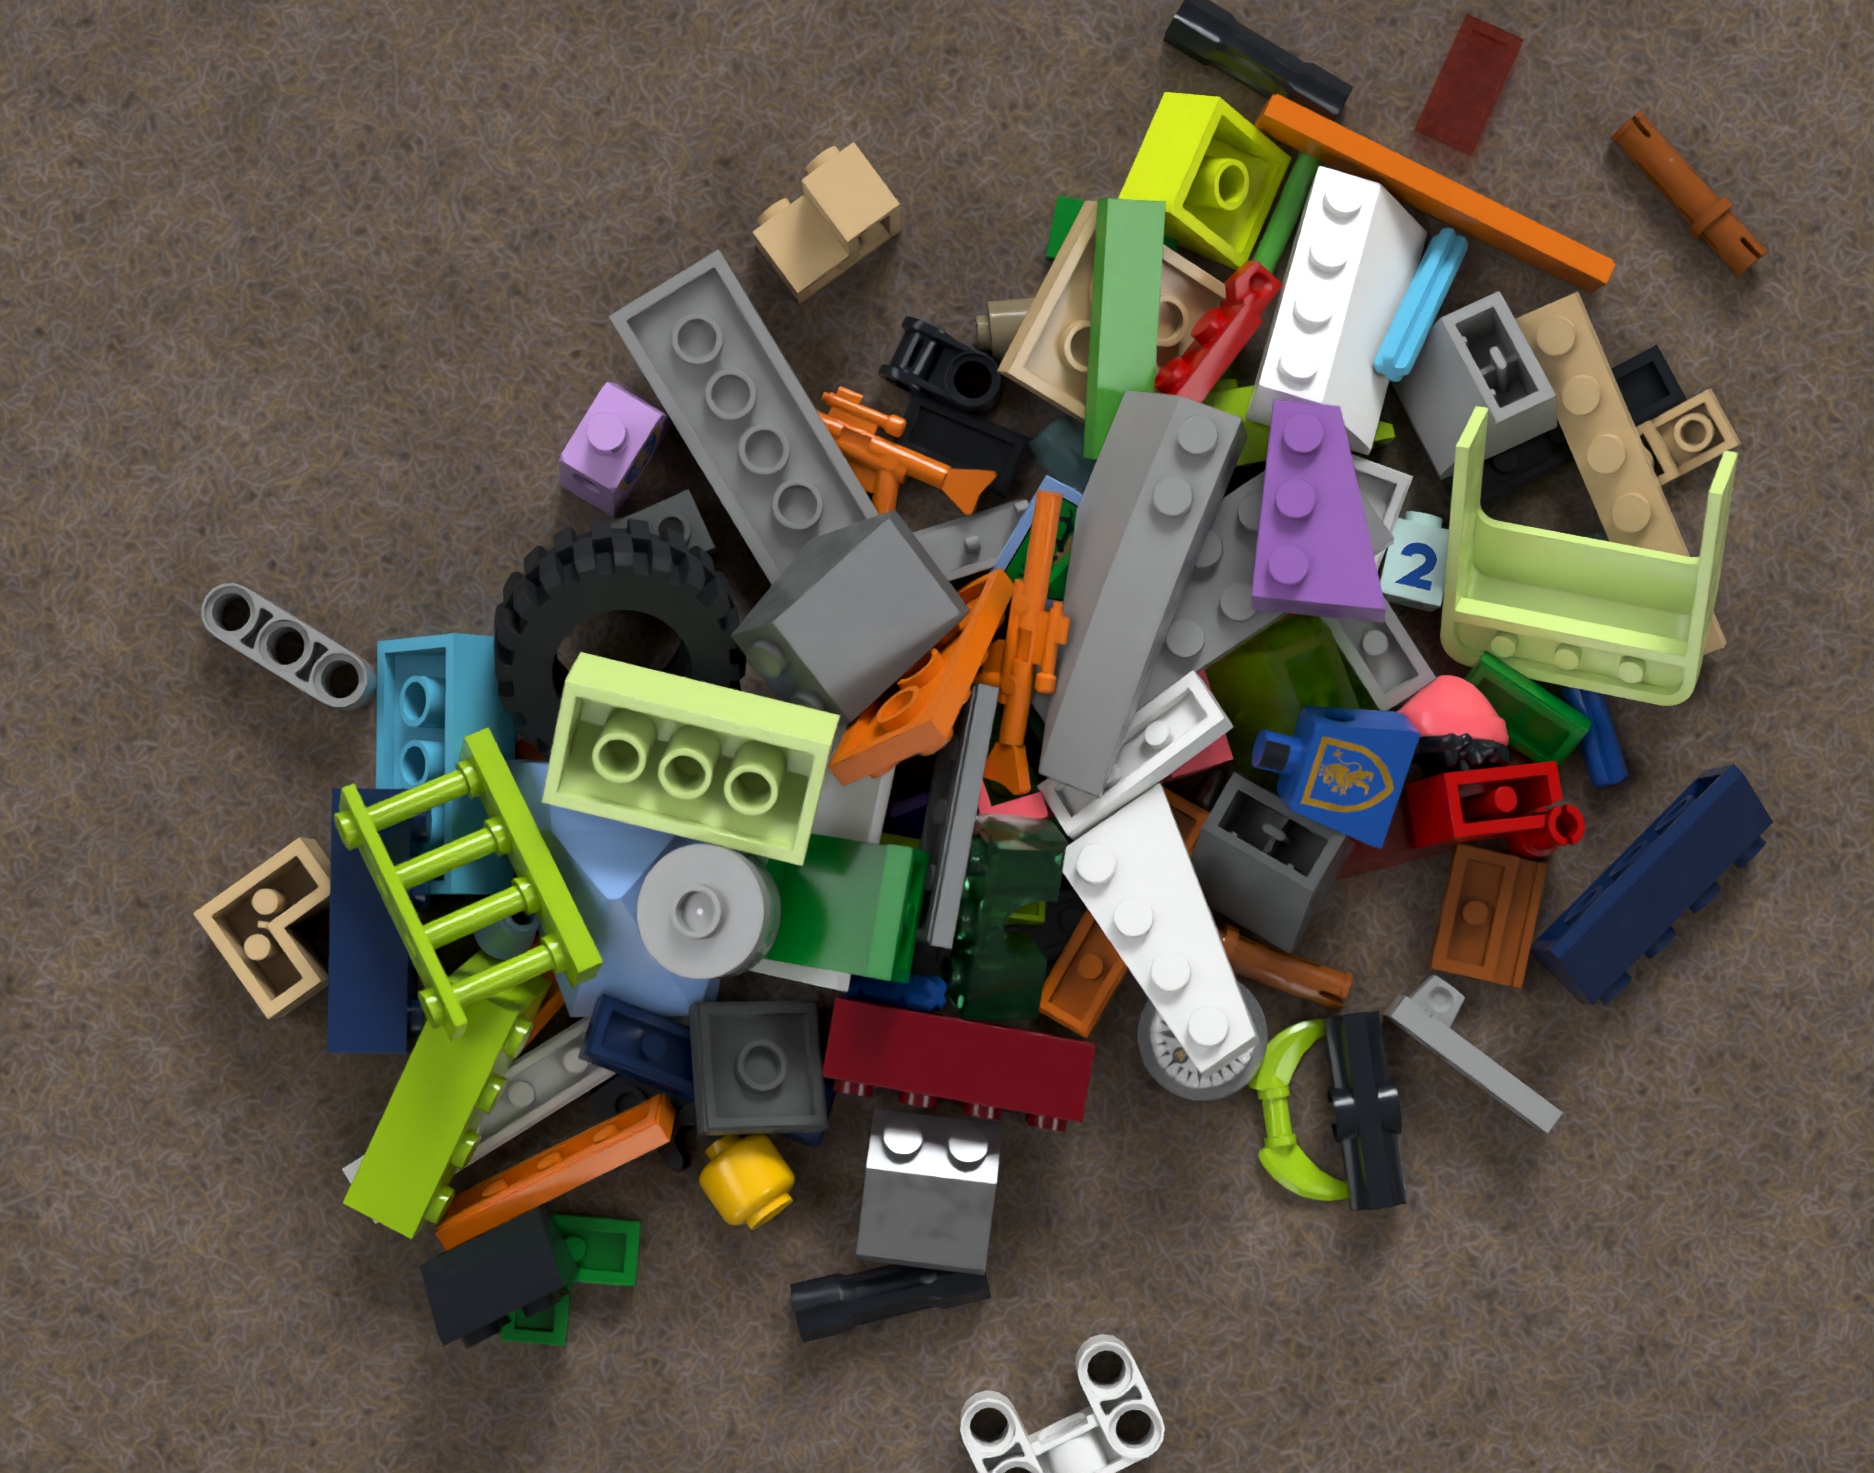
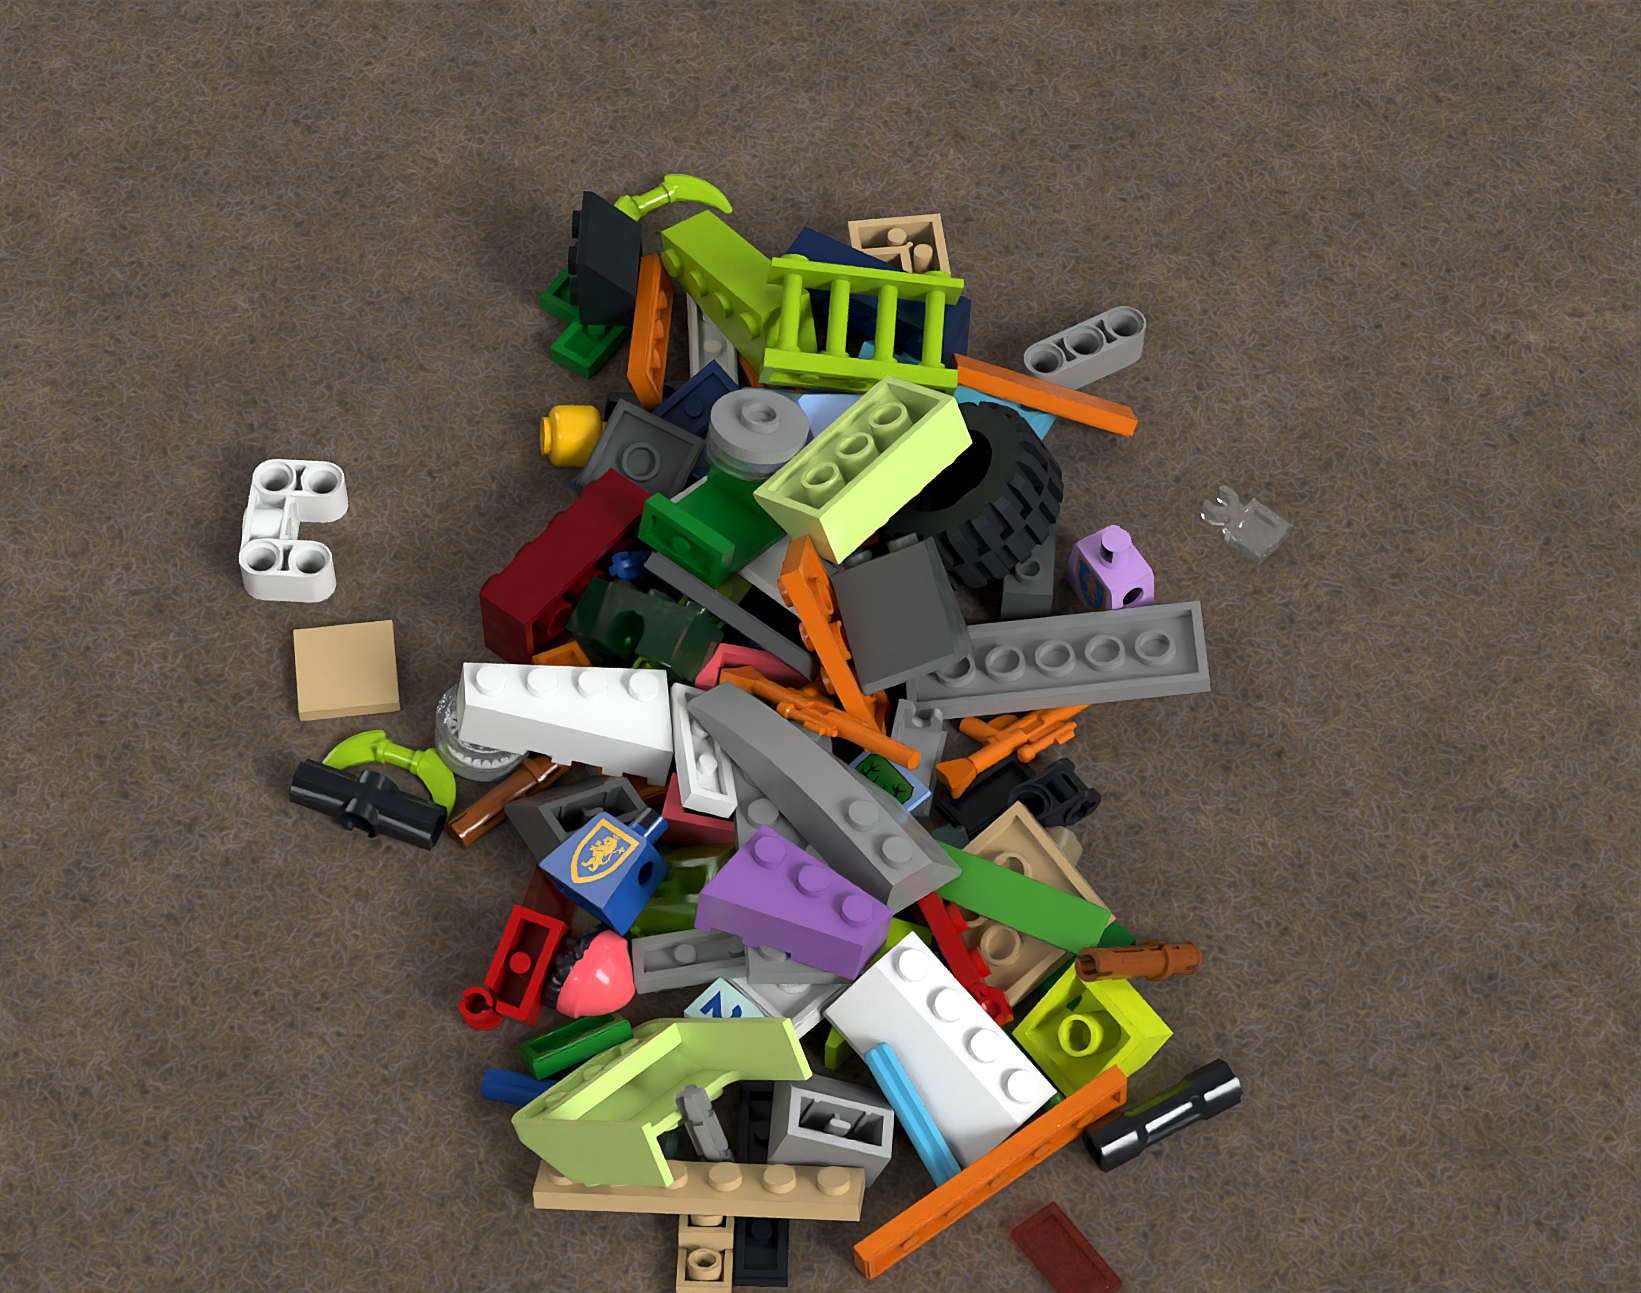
camera: 120 degrees right, 30 degrees down
(291, 1287) = (674, 188): none -> lime piece
(395, 655) = (1043, 395): none -> orange tile
(438, 330) = (1248, 528): none -> clear plate
(832, 225) = (1196, 777): tan brick -> none
(842, 1301) = (436, 508): black axle -> none
(929, 1191) = (492, 516): flat silver slope -> none
(1164, 177) = (1151, 960): none -> dark orange pin
(1201, 1249) = (346, 670): none -> tan tile
(1428, 1019) = (396, 868): light grey hinge -> none
(1487, 916) = (443, 947): dark orange plate -> none
(1562, 506) = (703, 1125): none -> light grey axle
(1653, 884) = (394, 1052): dark blue slope -> none

